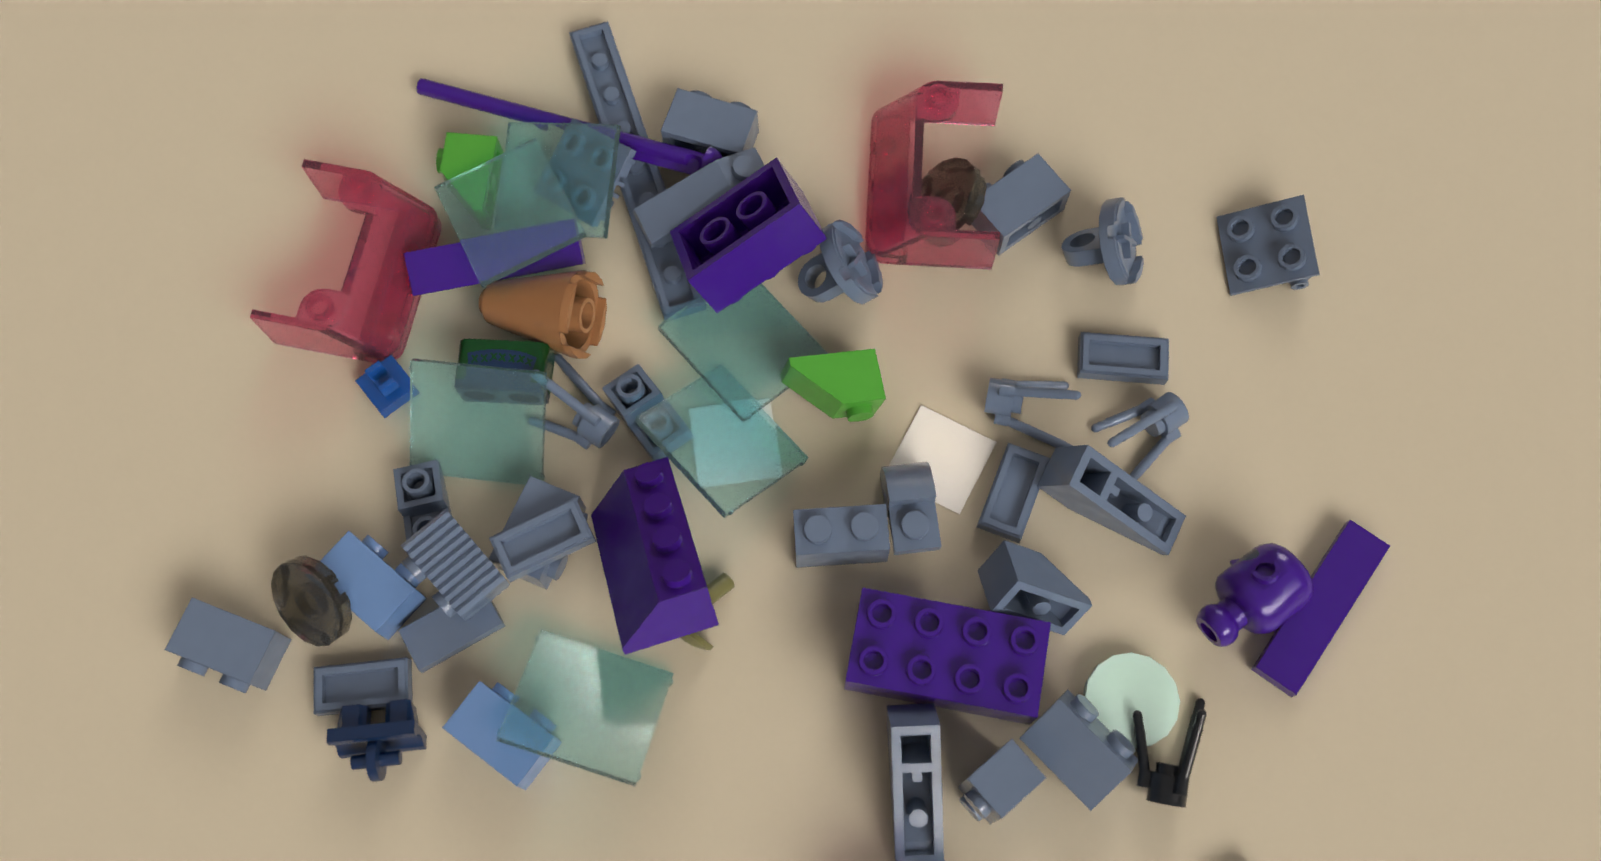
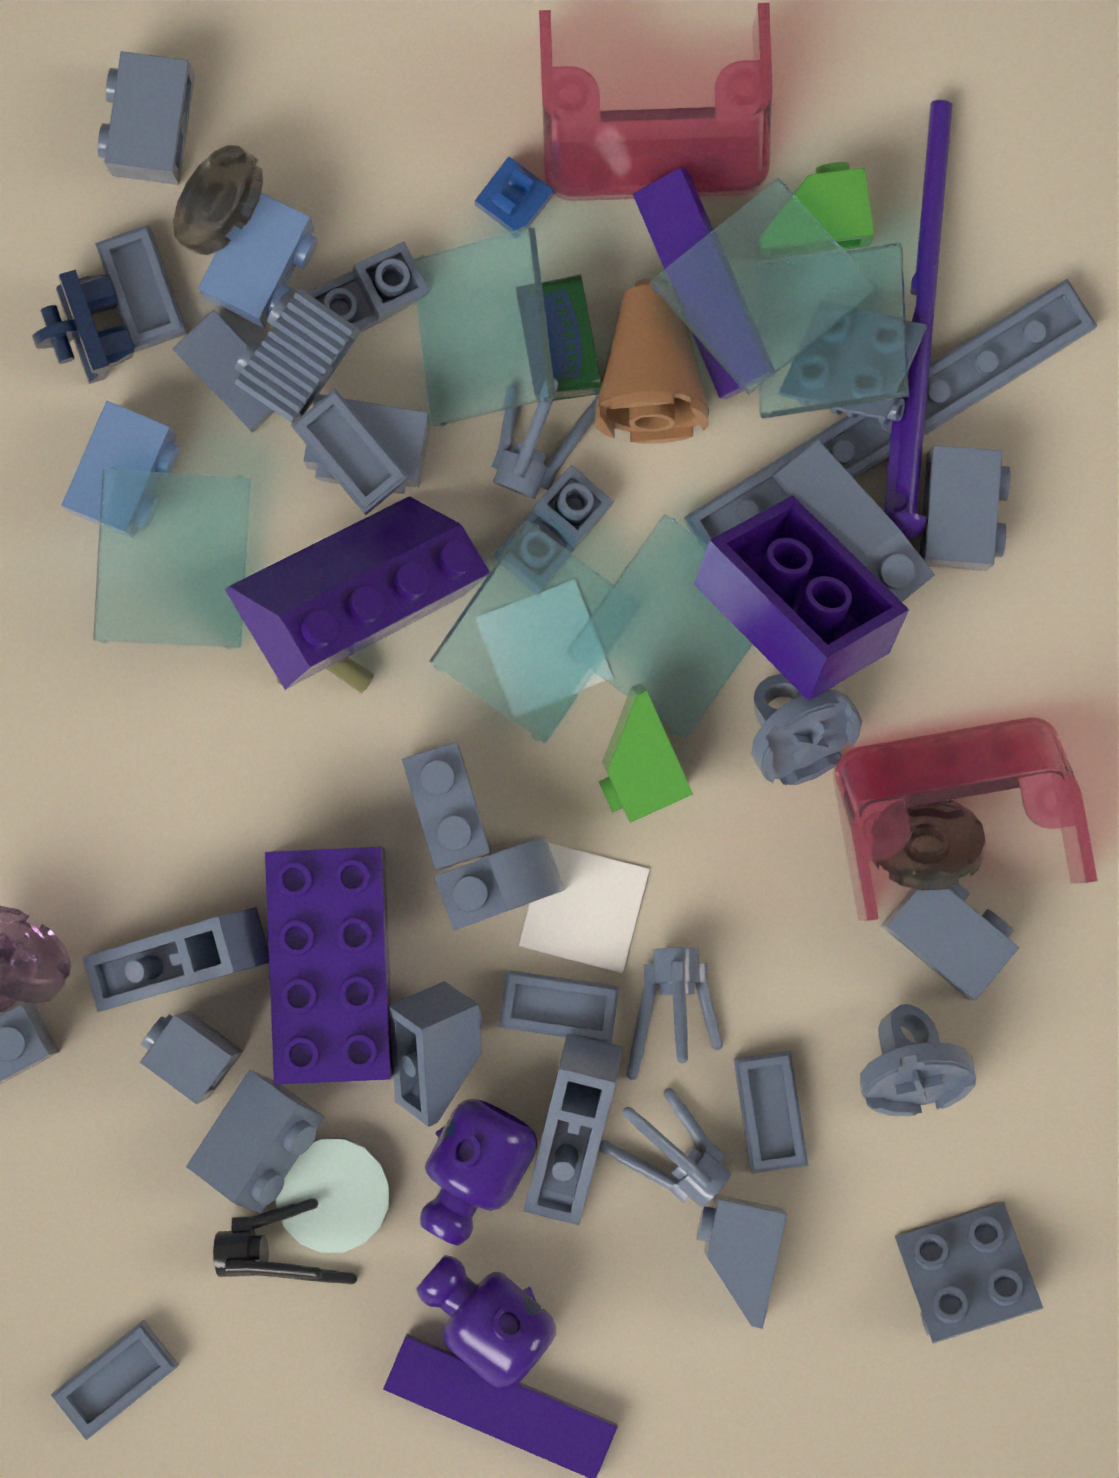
camera: 75 degrees right, 15 degrees up
(1130, 576) = (477, 1165): none -> dark purple piece
(1229, 394) = (744, 1250): none -> sand blue slope

